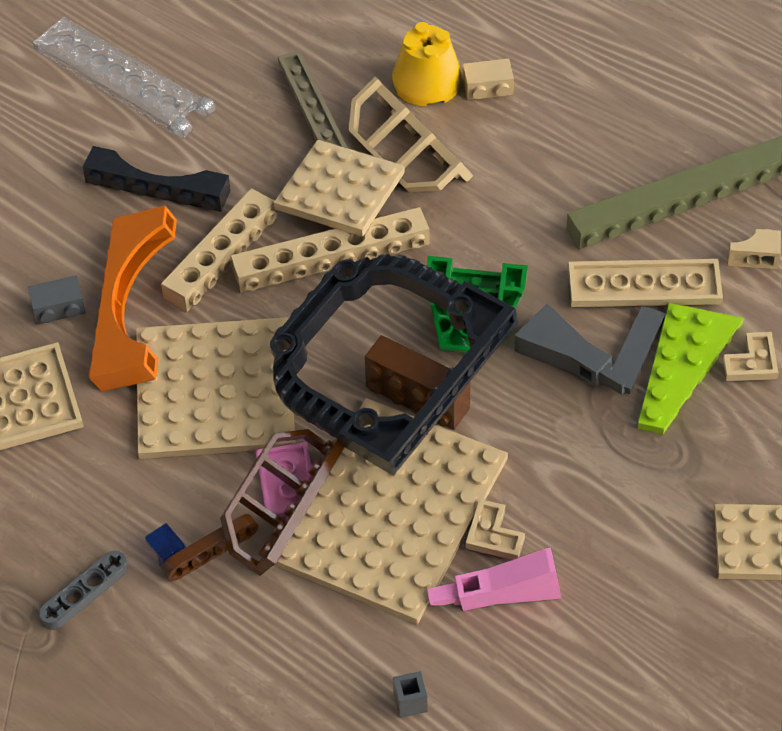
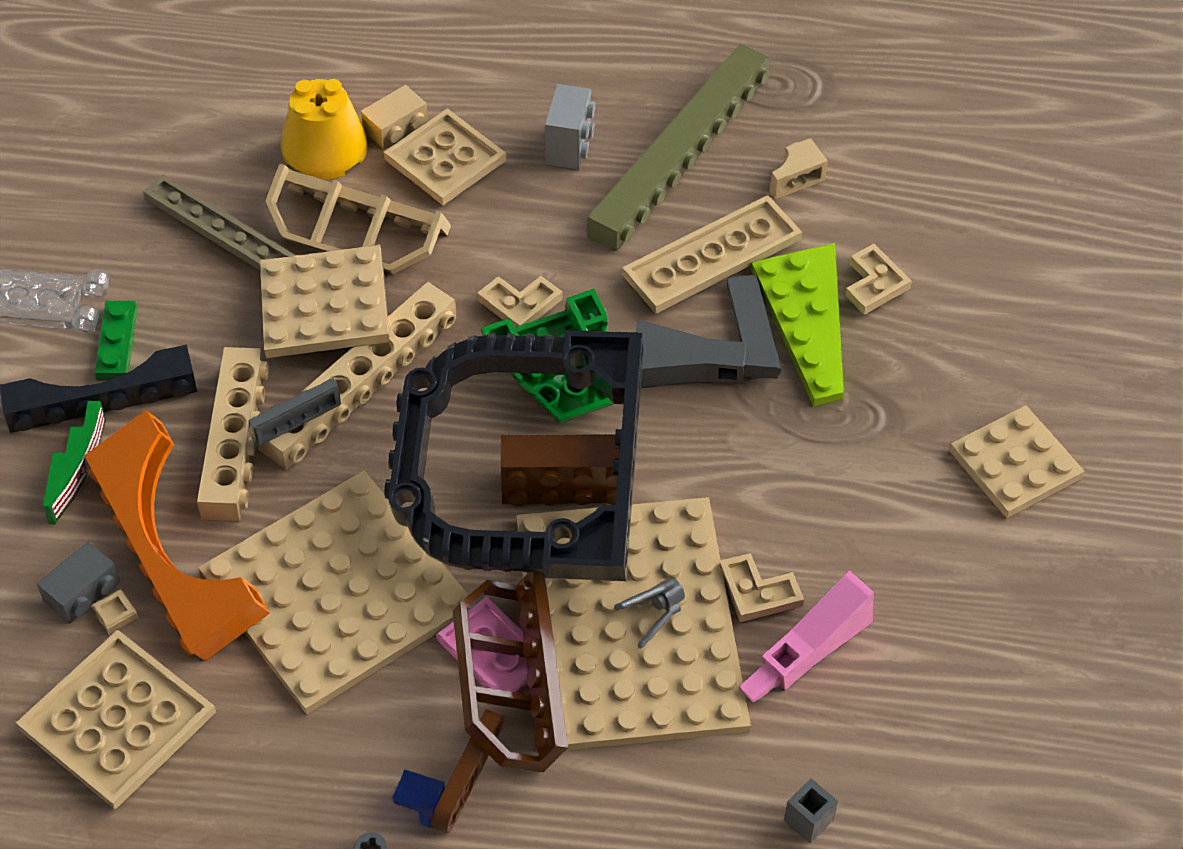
camera: 35 degrees left, 0 degrees up
(67, 331) = (114, 612): none -> tan tile
(98, 223) = (71, 468): none -> green slope
(192, 150) = (116, 339): none -> green plate
(261, 253) = (294, 412): none -> dark grey plate
(418, 500) = (663, 596): none -> dark grey plant
(478, 256) = (520, 306): none -> tan plate
(504, 124) = (445, 156): none -> tan plate
(603, 141) = (569, 127): none -> light grey brick

